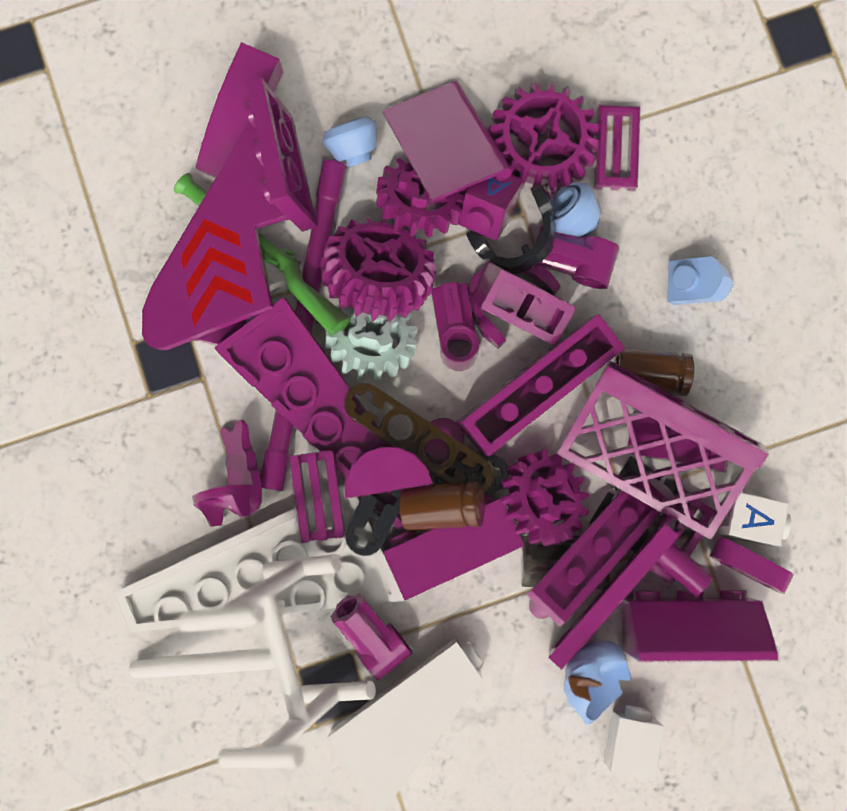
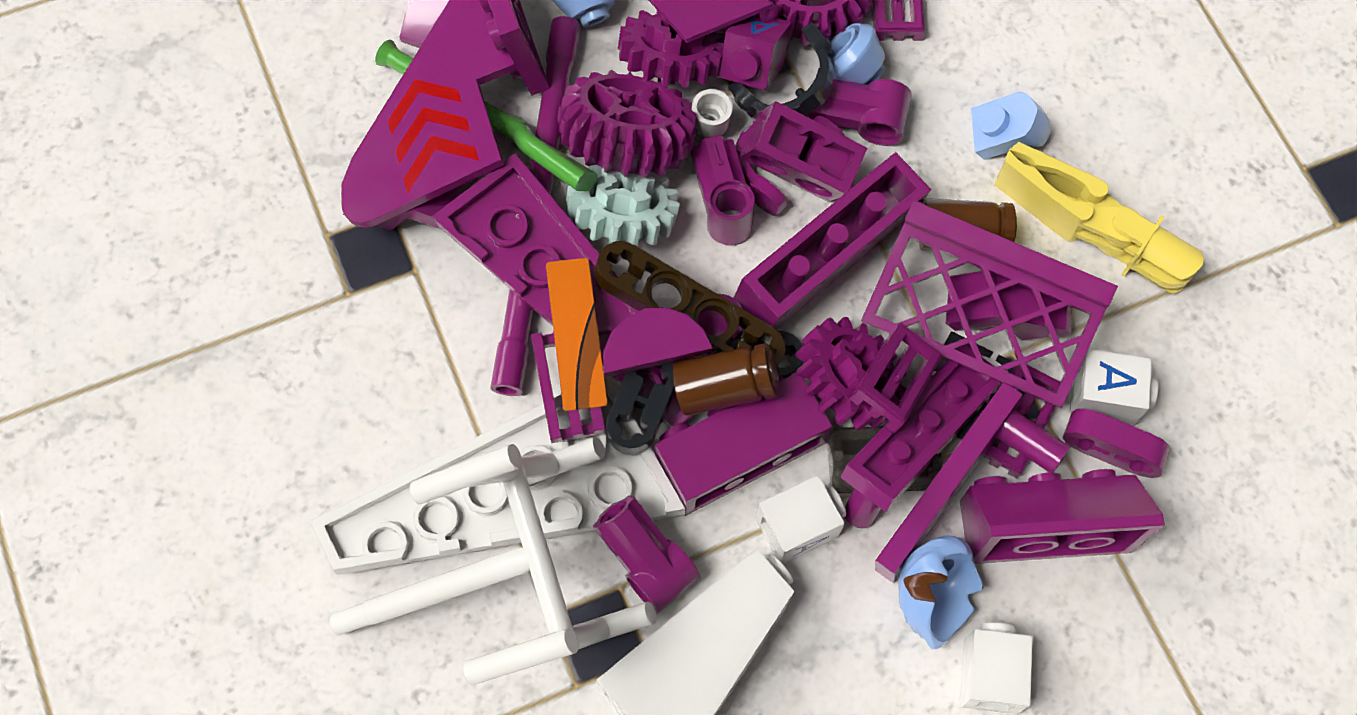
camera: 10 degrees left, 15 degrees down
(244, 484) = (469, 378): magenta hair -> none
(325, 455) = (576, 334): none -> orange sticker
(450, 250) = (712, 112): none -> white hose
(495, 613) = (801, 518): none -> white brick
(561, 538) = (880, 401): none -> magenta tile
(763, 371) = (1079, 207): none -> light yellow arm

